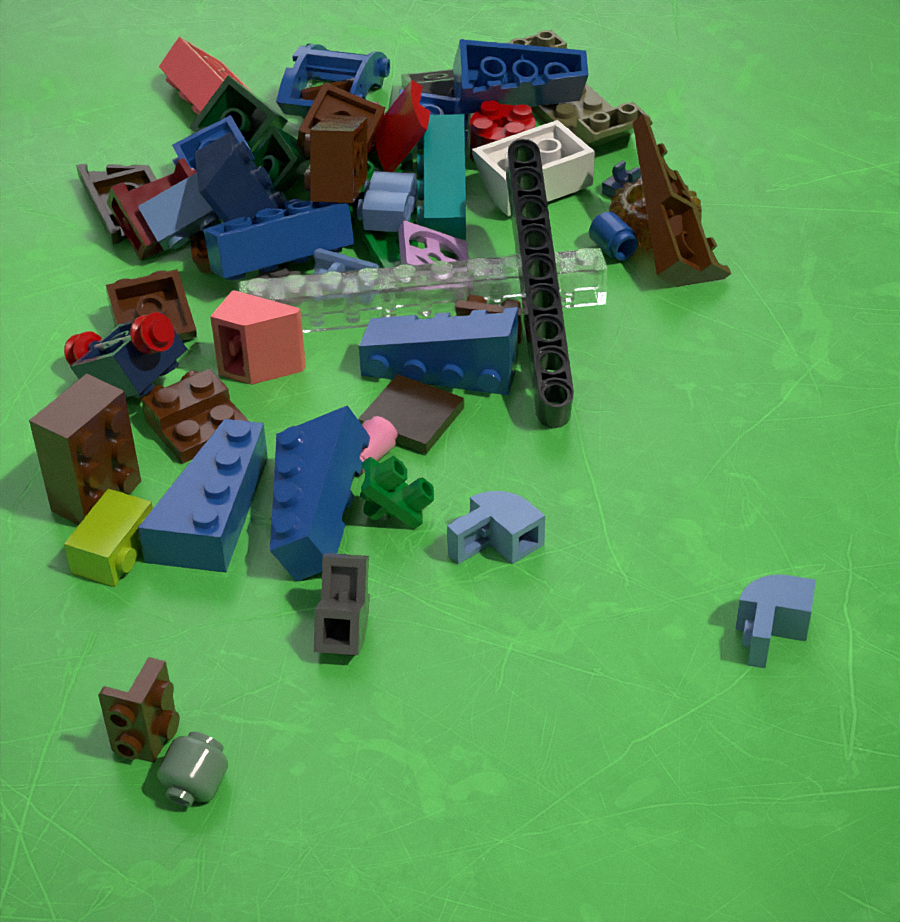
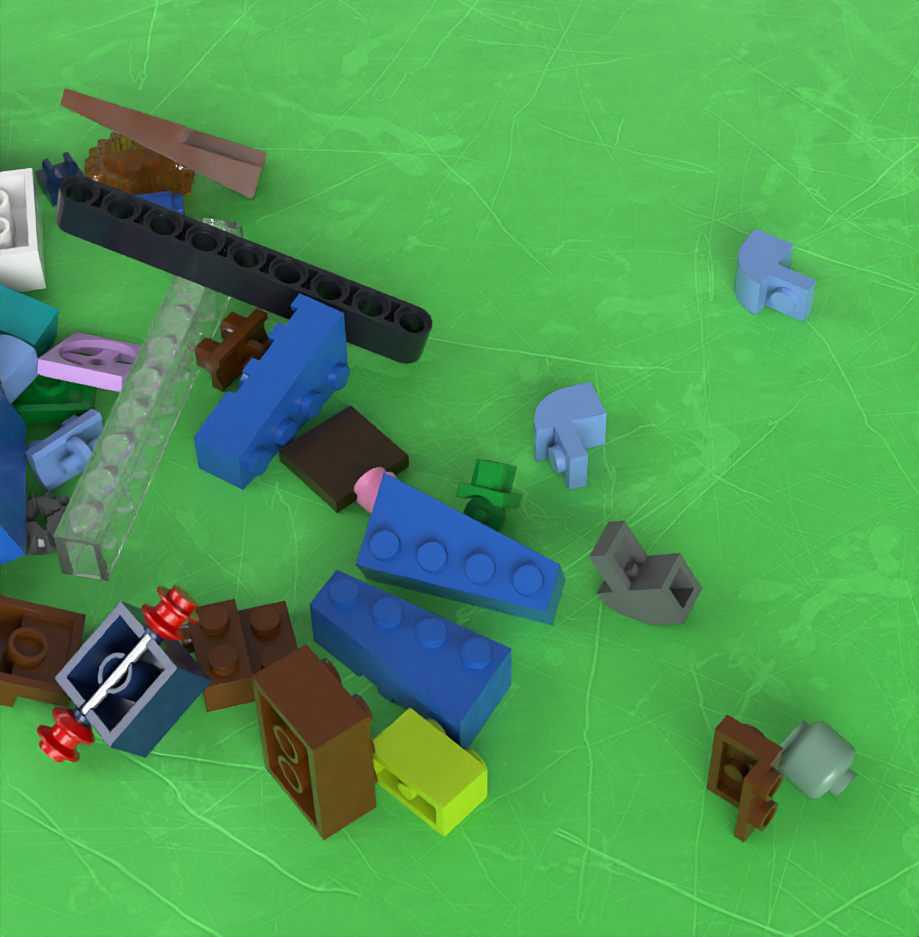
camera: 70 degrees left, 5 degrees up
(257, 338) = (162, 543): coral slope -> none

